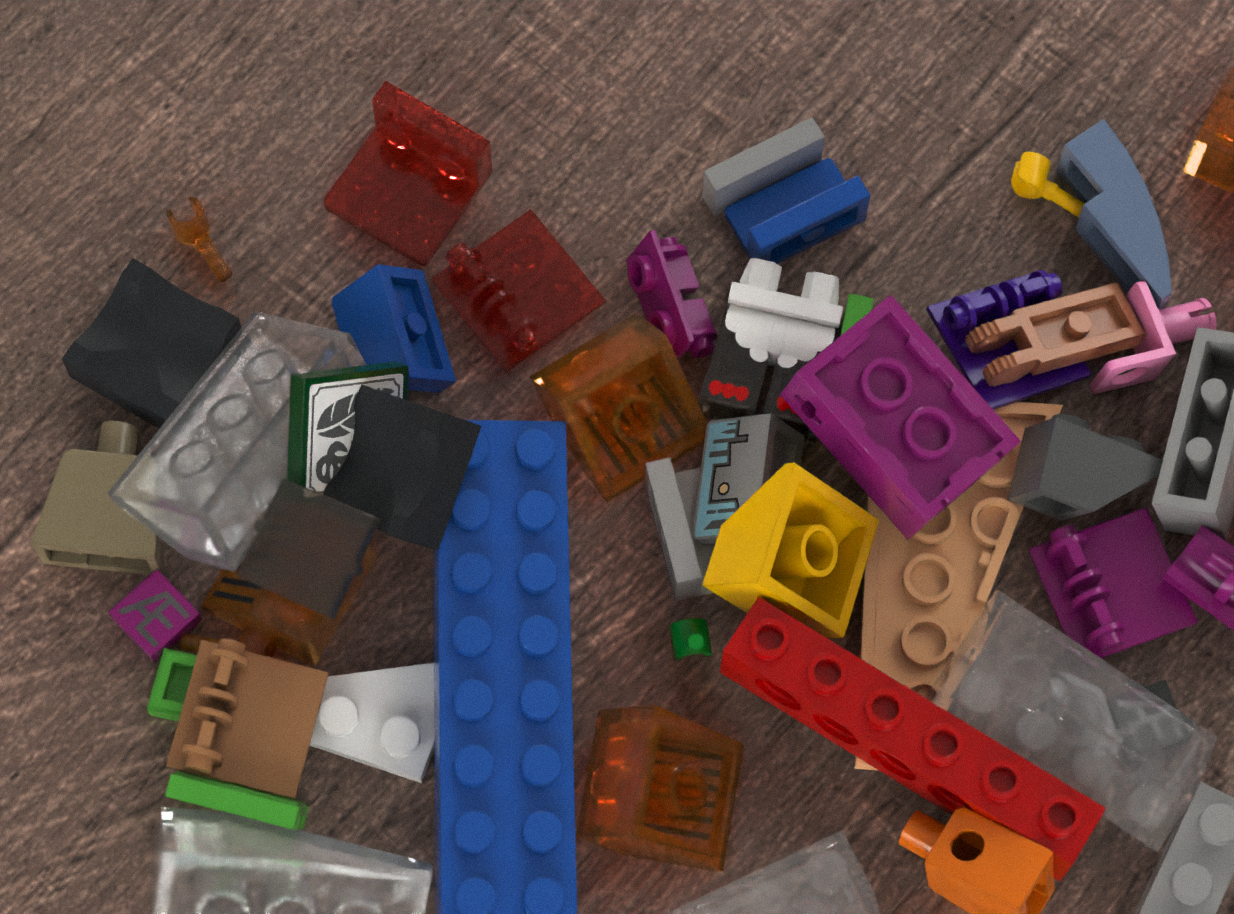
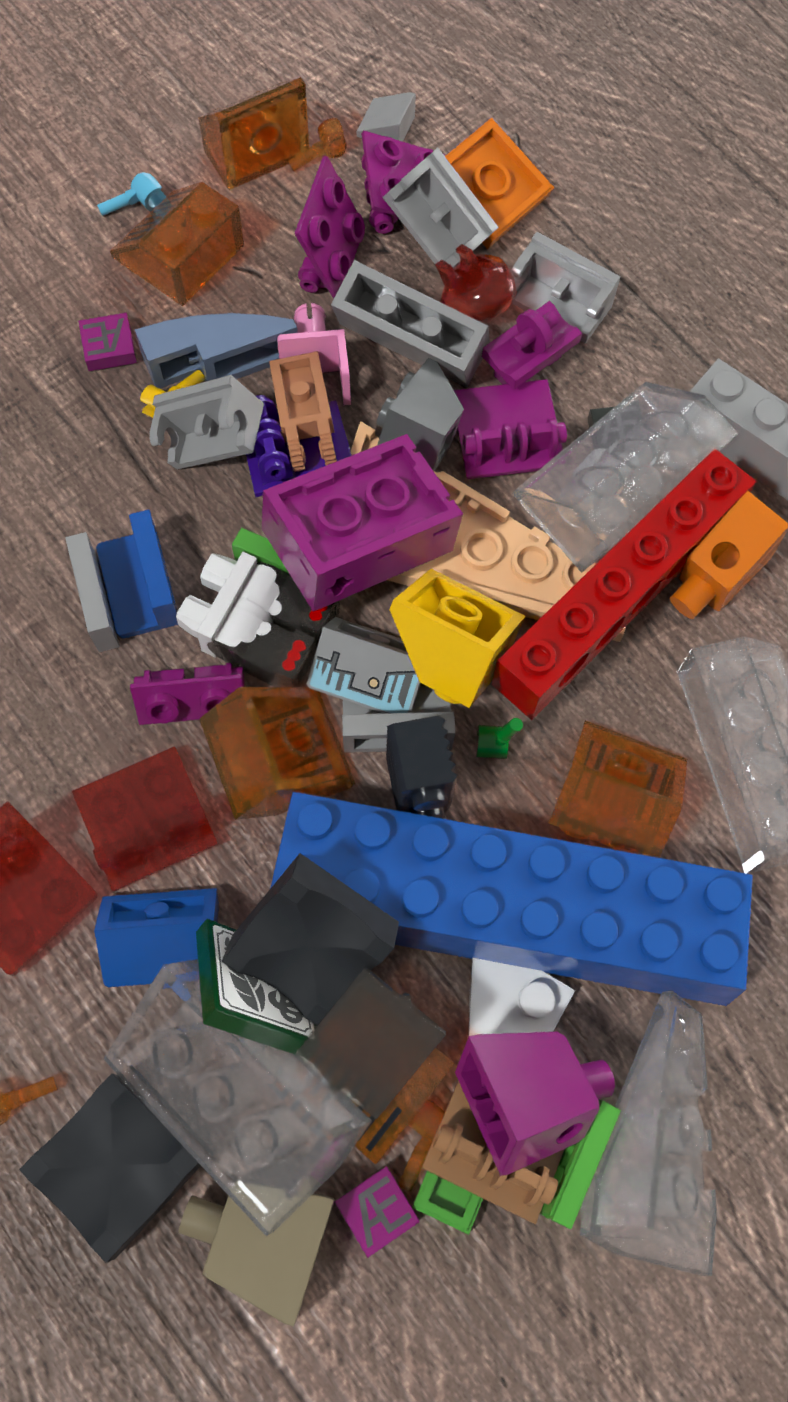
camera: 80 degrees left, 0 degrees up
(289, 728) = (530, 1094): none -> magenta torso
(621, 553) = (421, 766): none -> black brick
(1003, 235) = (206, 422): none -> light grey hinge
(1100, 95) = (107, 341): none -> magenta tile

